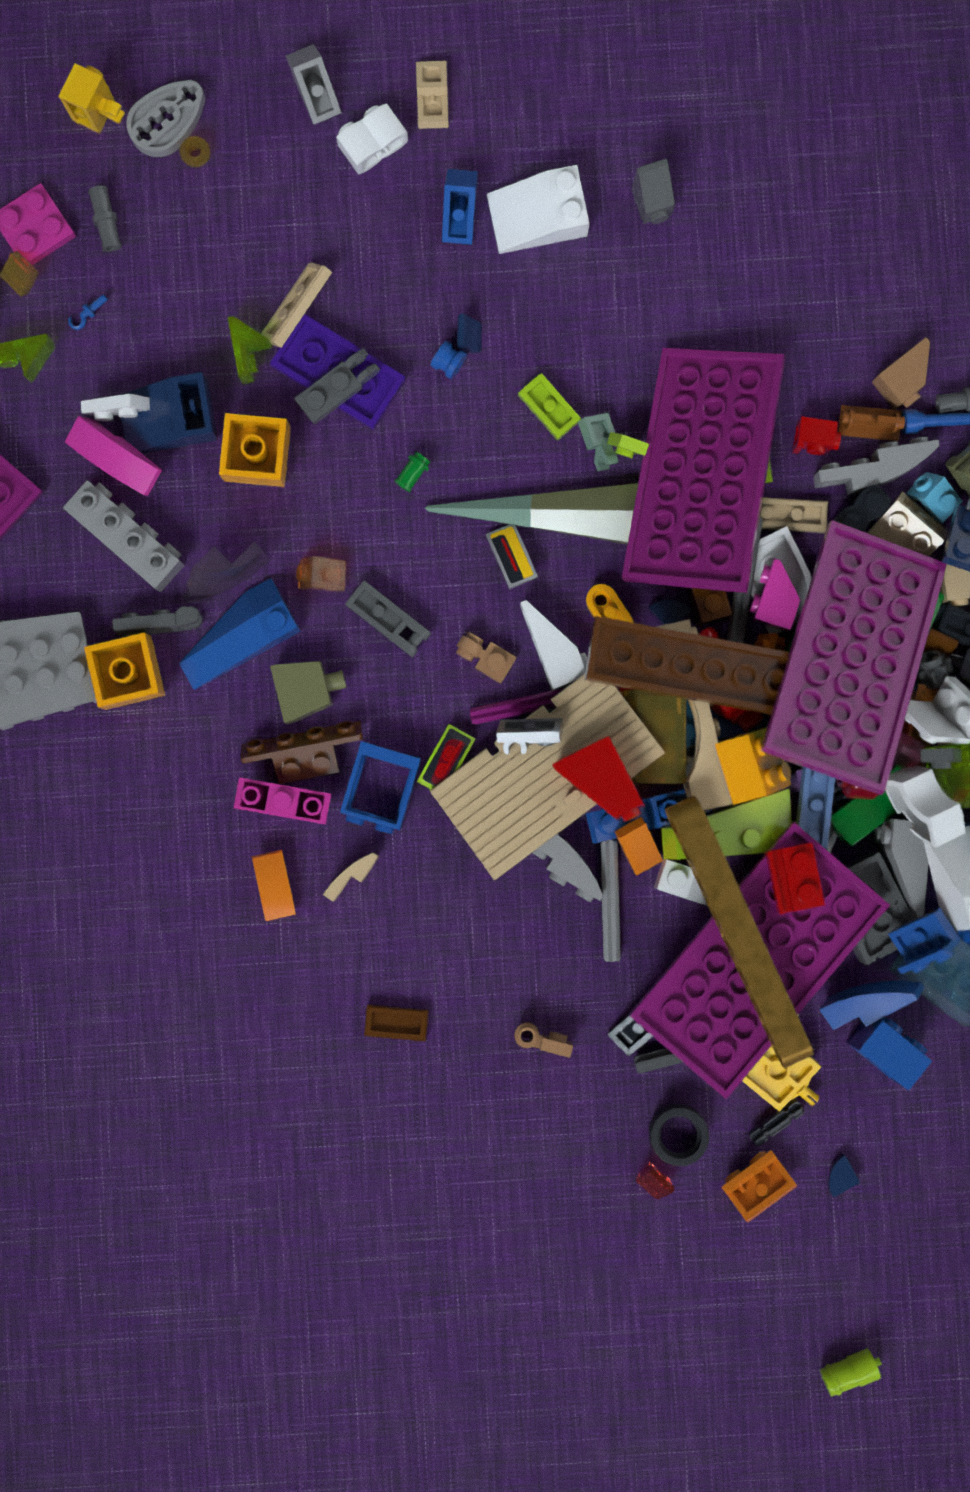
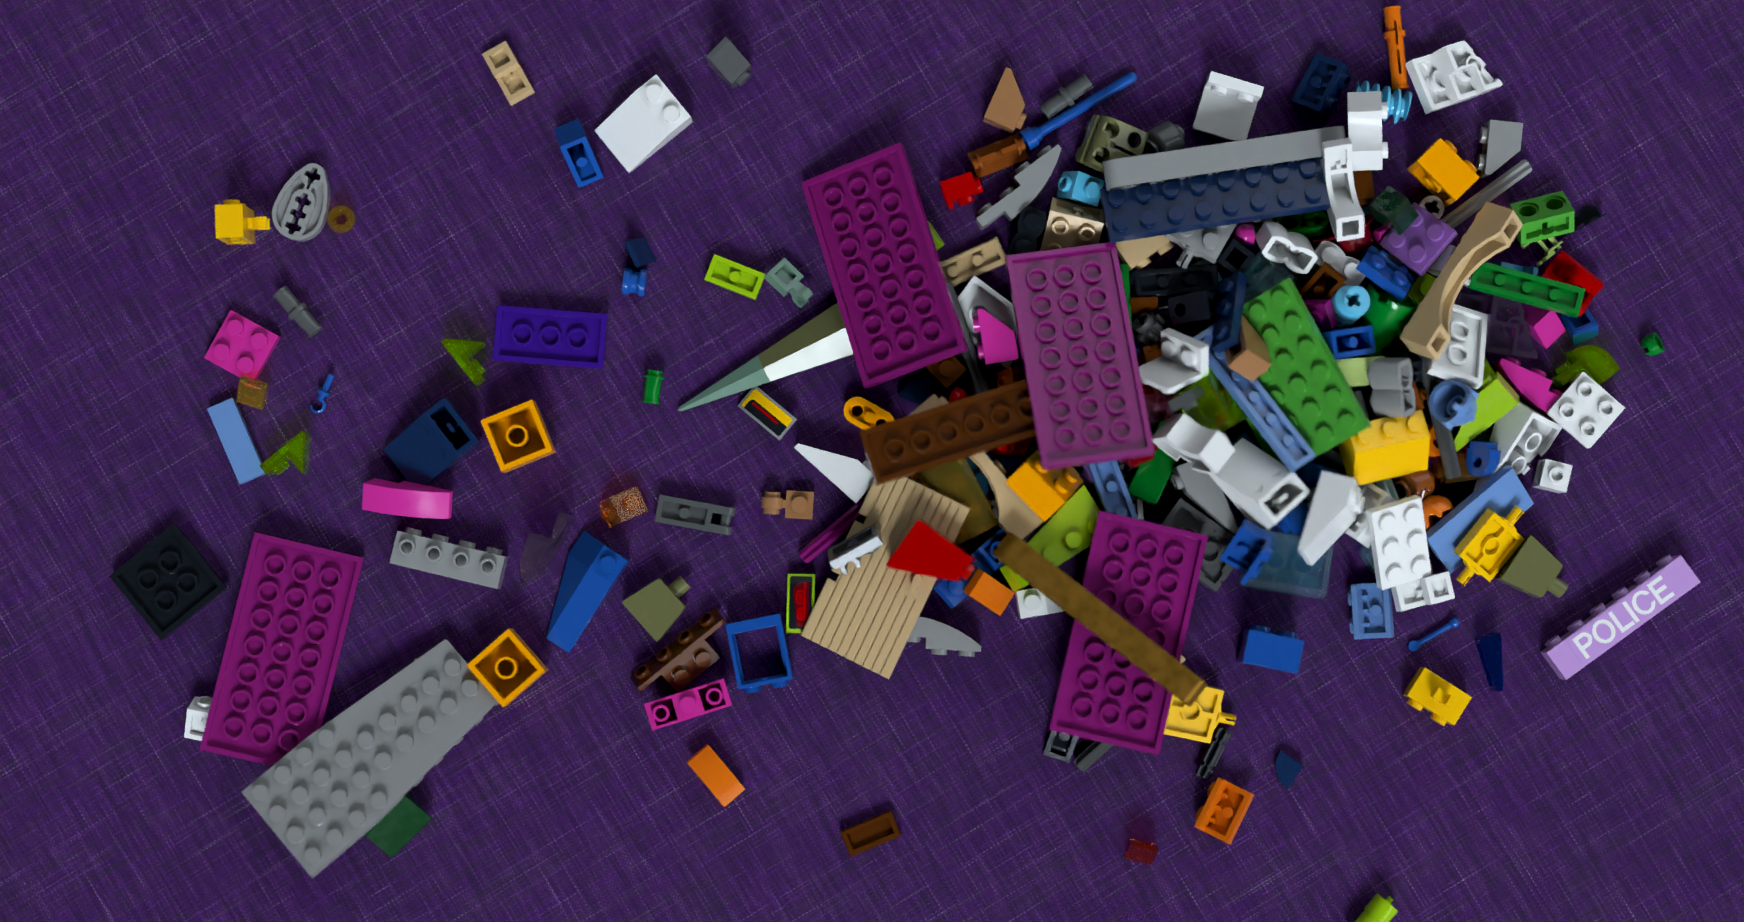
camera: 25 degrees left, 0 degrees up
(122, 405) = (397, 455): white plate -> none
(159, 622) = (513, 613): dark grey hinge -> none
(296, 303) = (488, 301): tan tile -> none
(313, 83) = (408, 115): light grey slope -> none
(335, 387) = (556, 353): dark grey hinge -> none
(357, 870) = (776, 728): tan slope -> none
(371, 138) = (479, 134): white brick -> none
(554, 1043) = (1004, 783): medium nougat plate -> none
(610, 900) = (989, 646): light grey axle -> none
(626, 445) = (813, 278): lime plate -> none
(687, 1157) = (1156, 817): black tyre -> none
(795, 878) = (1122, 554): red plate -> none
(869, 1001) = (1233, 619): blue slope -> none

